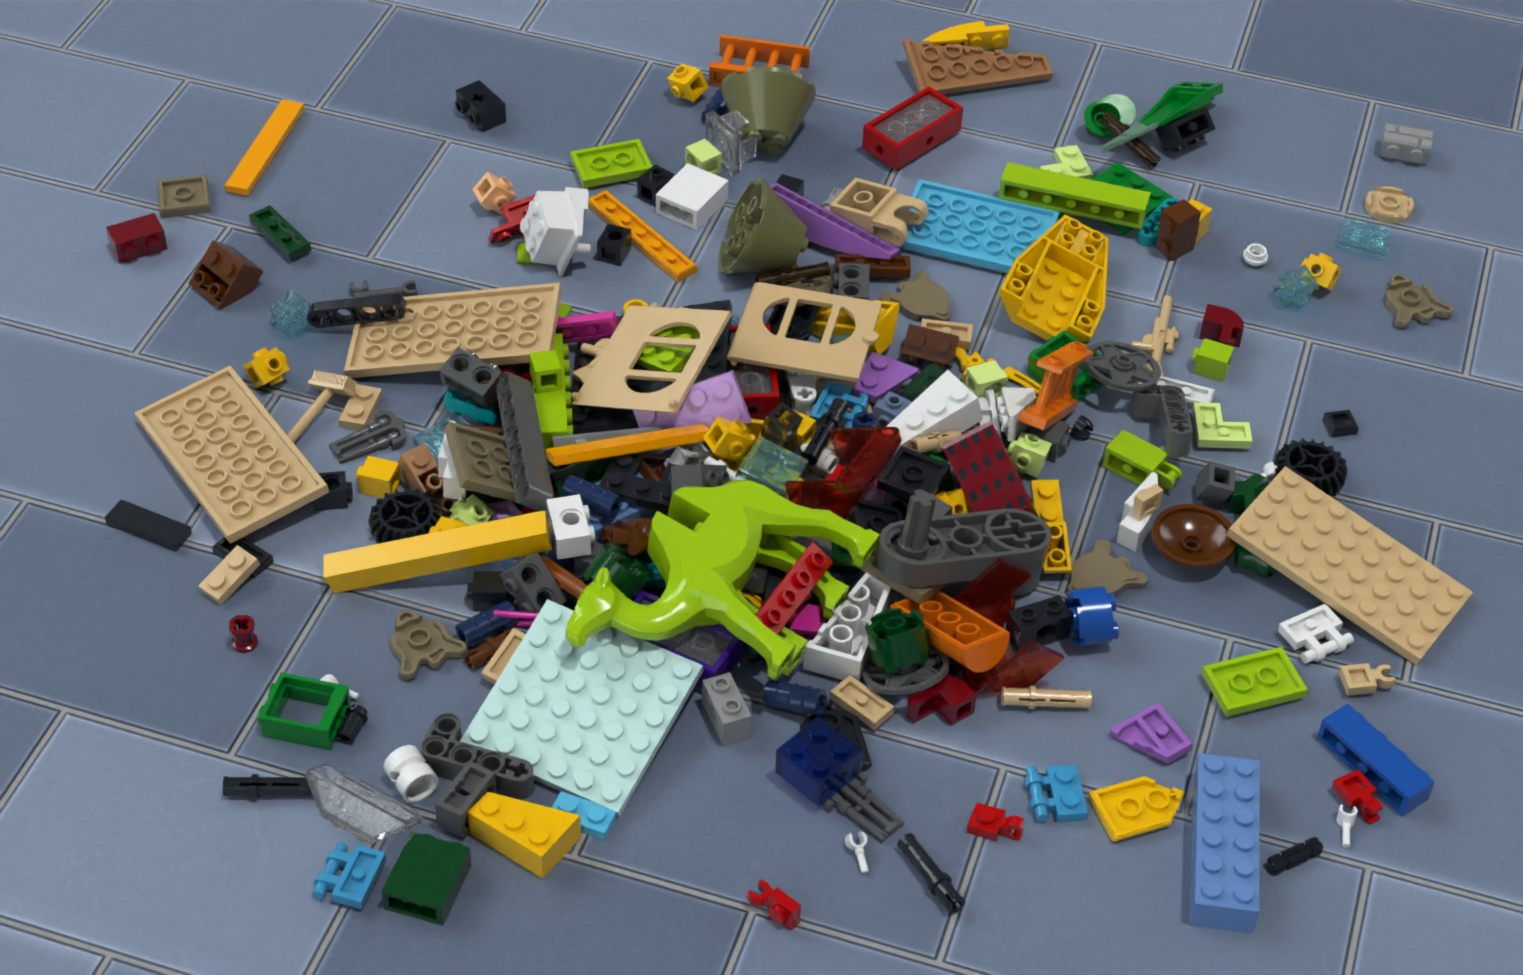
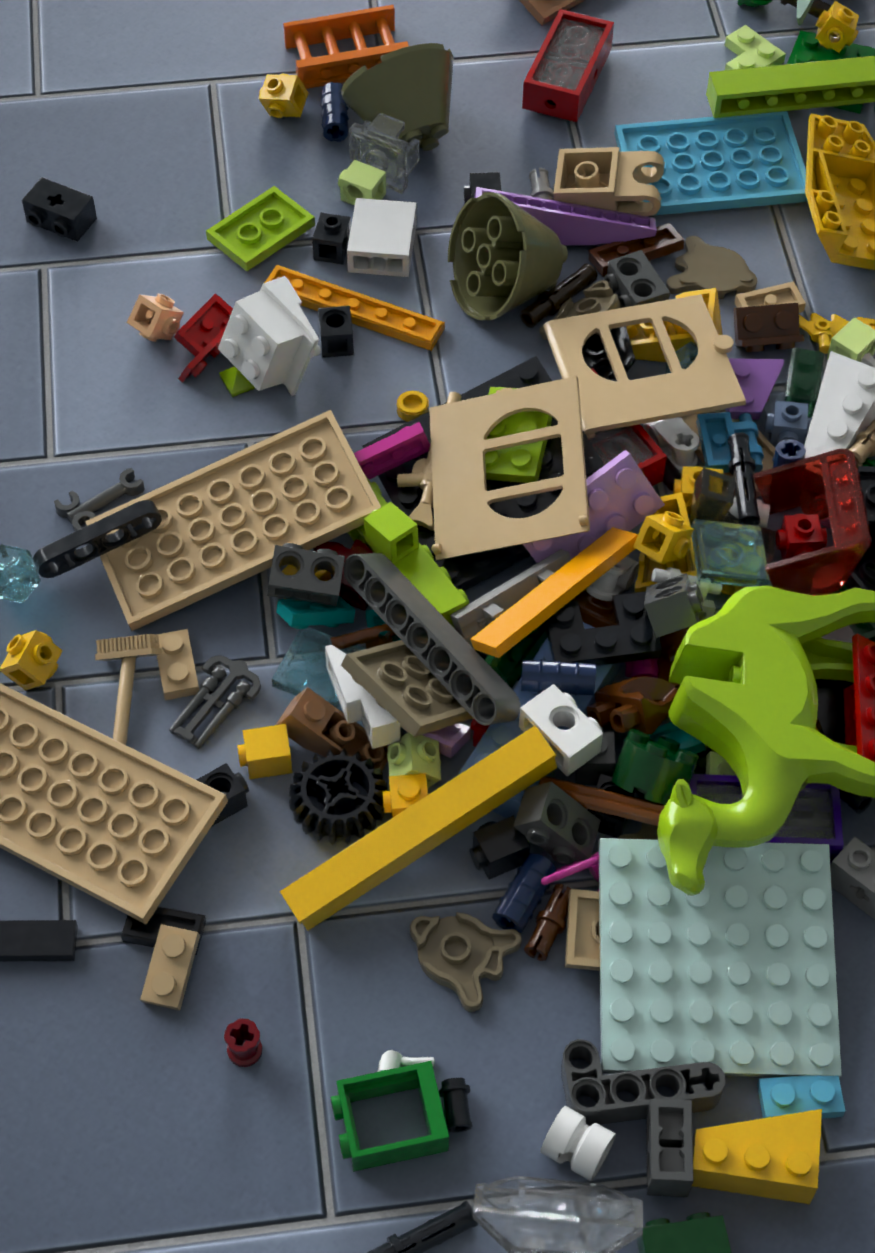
camera: 25 degrees left, 10 degrees up
(1136, 164) = (837, 27): none -> yellow brick

